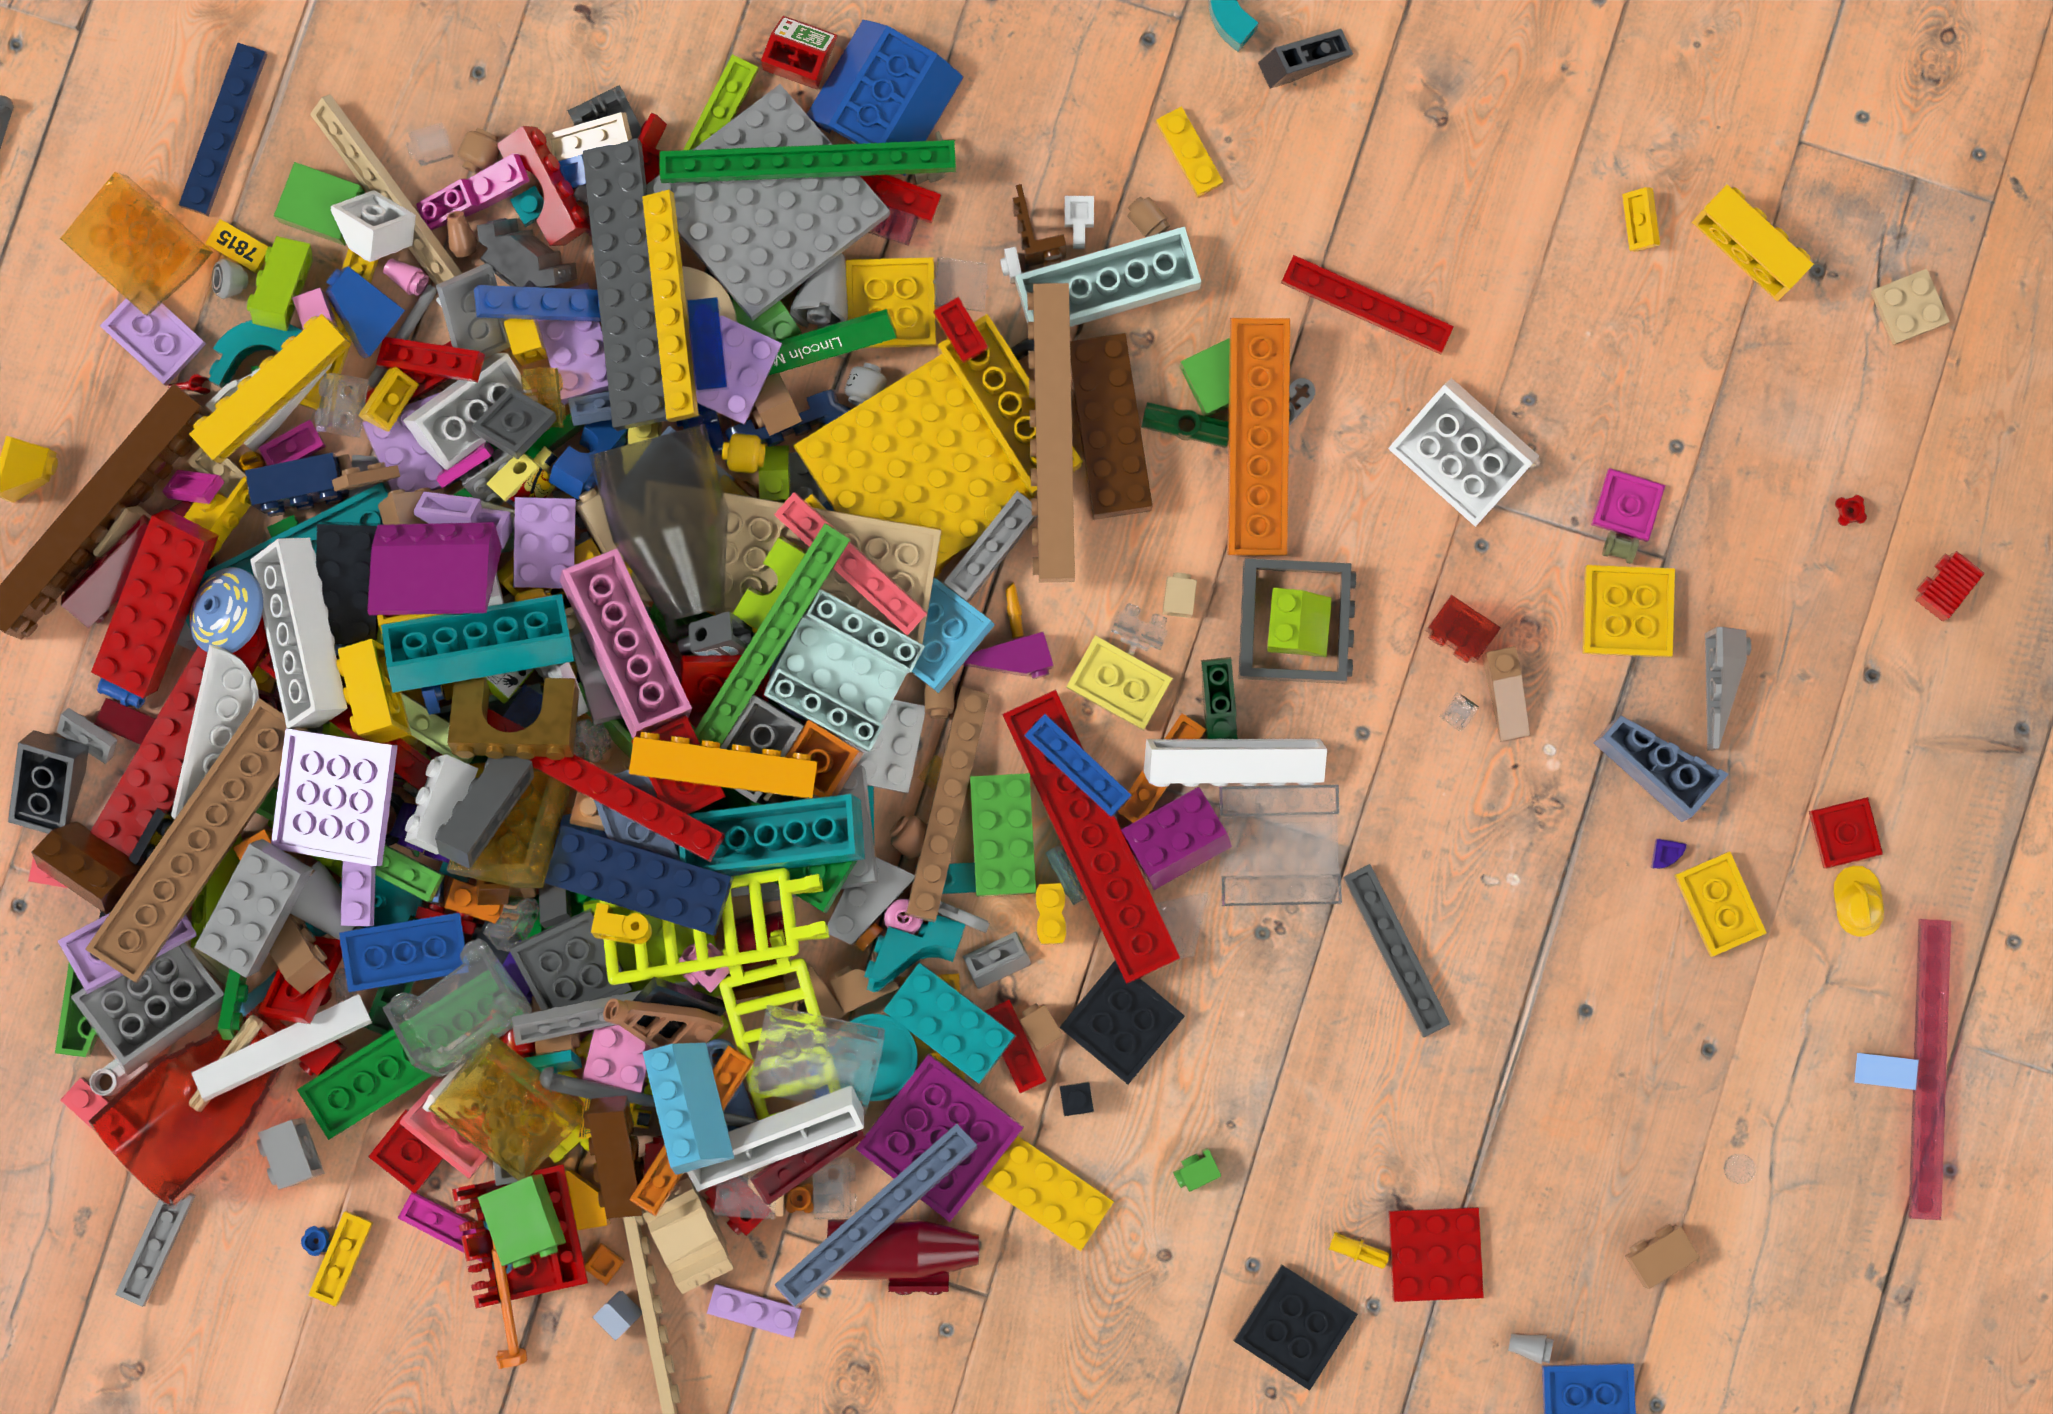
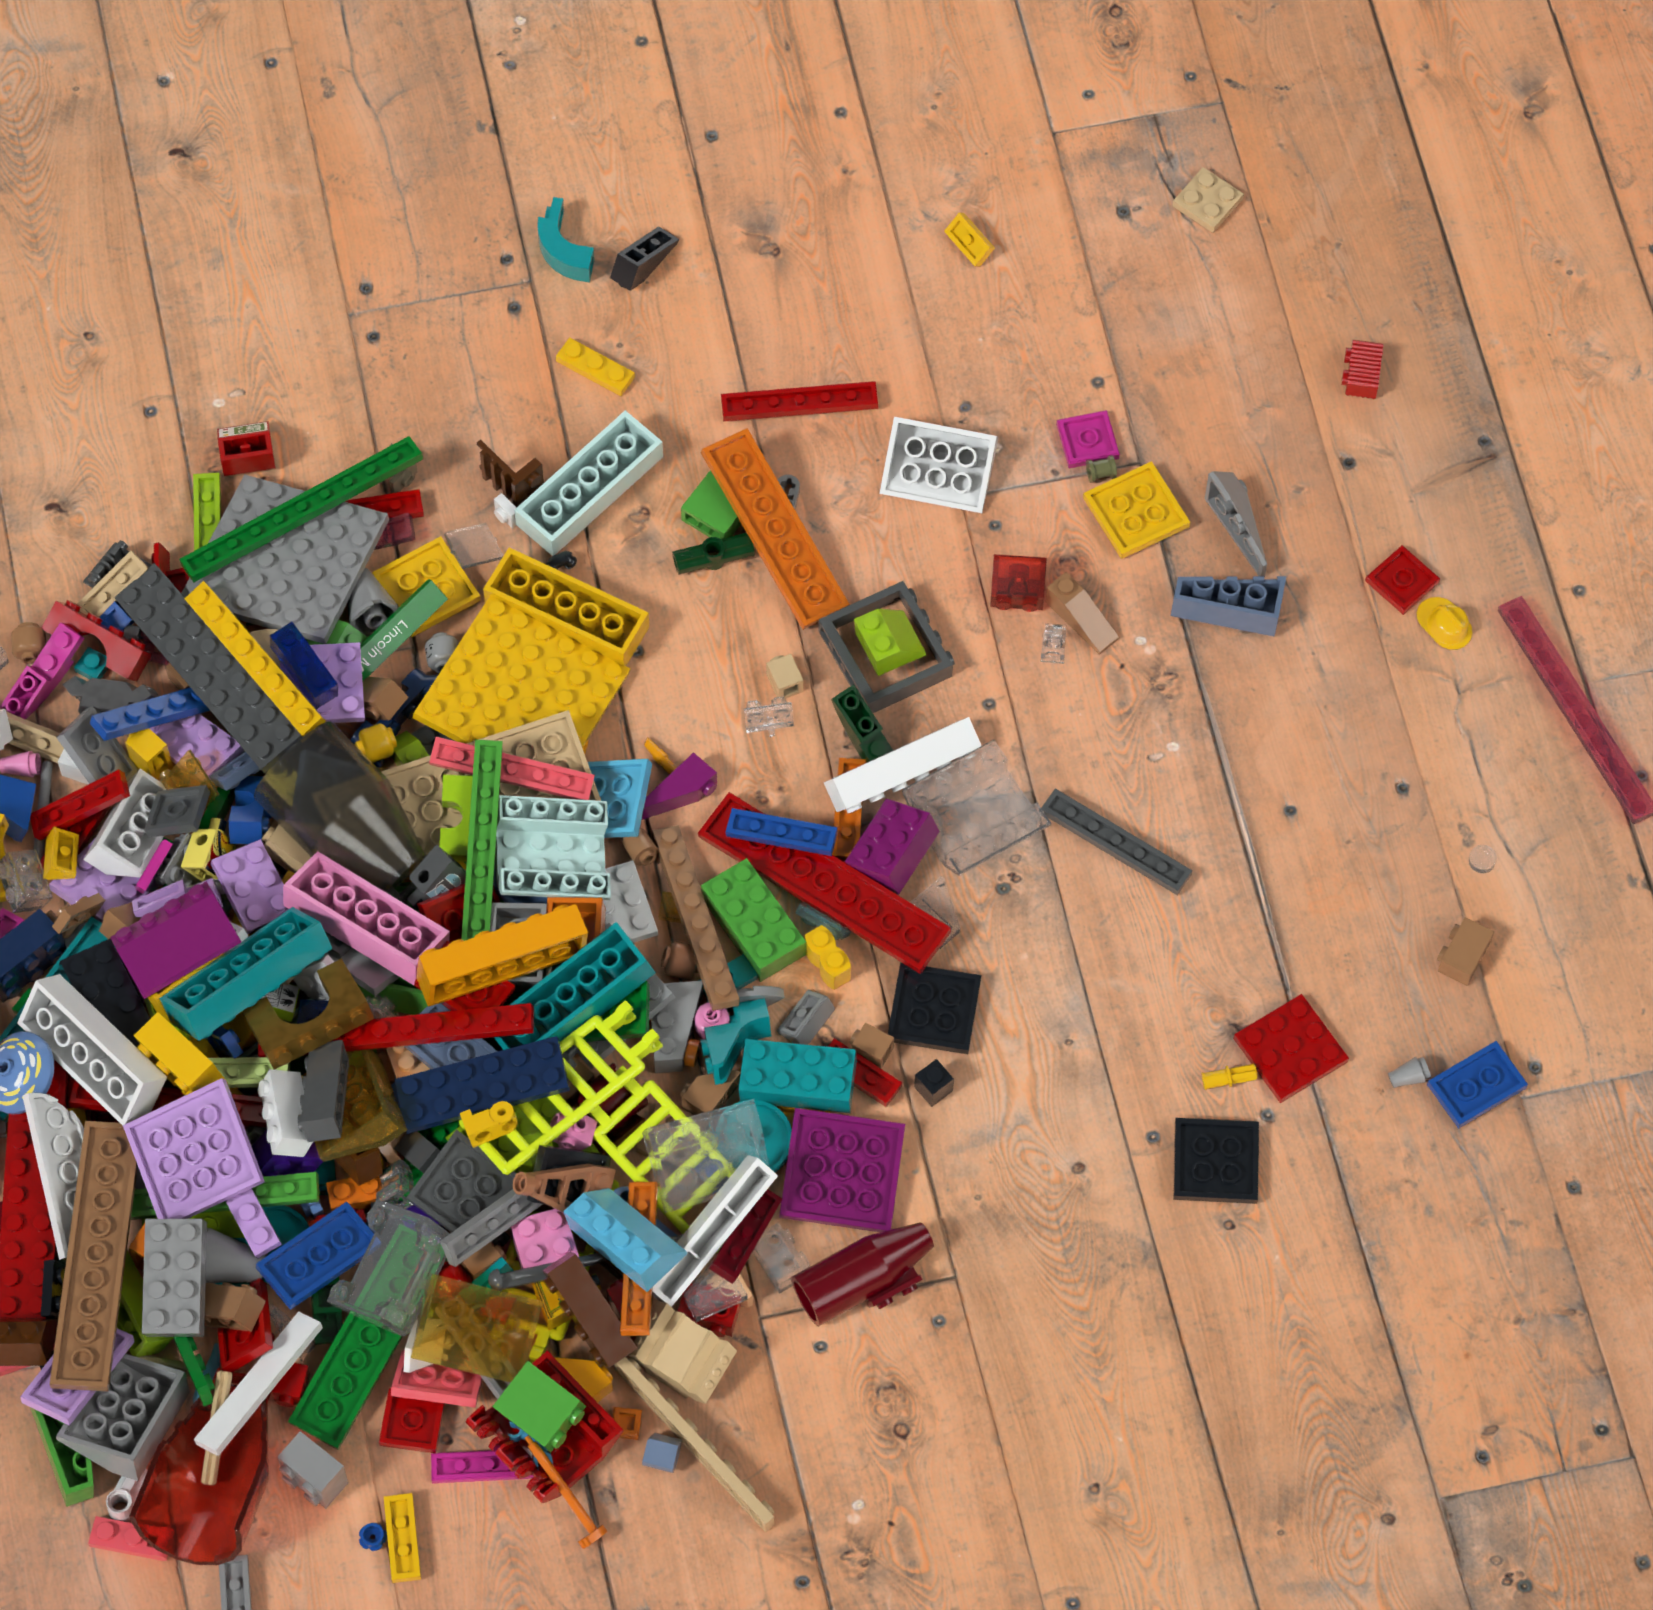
camera: 30 degrees left, 20 degrees down
(460, 235) = (49, 709): nougat cone -> none
(754, 1310) = (773, 1390): lavender plate -> none
(806, 1204) = (758, 1274): orange plate -> none
(876, 1216) = (828, 1243): sand blue plate -> none
(884, 89) = (329, 433): blue slope -> none
(960, 330) = (495, 565): red plate -> none
(991, 547) = (615, 712): light grey fence -> none
(1048, 1193) = (955, 1169): yellow plate -> none
(1053, 432) = (614, 601): medium nougat brick -> none
(1079, 215) = (538, 447): white plate -> none
(1109, 426) = (654, 584): reddish brown brick -> none
(1119, 682) = (776, 763): light yellow plate -> none
(1147, 217) = (589, 424): medium nougat brick -> none
(1197, 1171) = (1064, 1084): bright green brick -> none
(1666, 853) = (1277, 664): dark purple tile -> none
(1720, 904) = (1341, 677): yellow plate -> none
(1753, 242) = (1062, 210): yellow brick -> none
(1858, 507) = (1257, 350): red plate -> none
(1886, 1071) = (1545, 726): light blue tile -> none

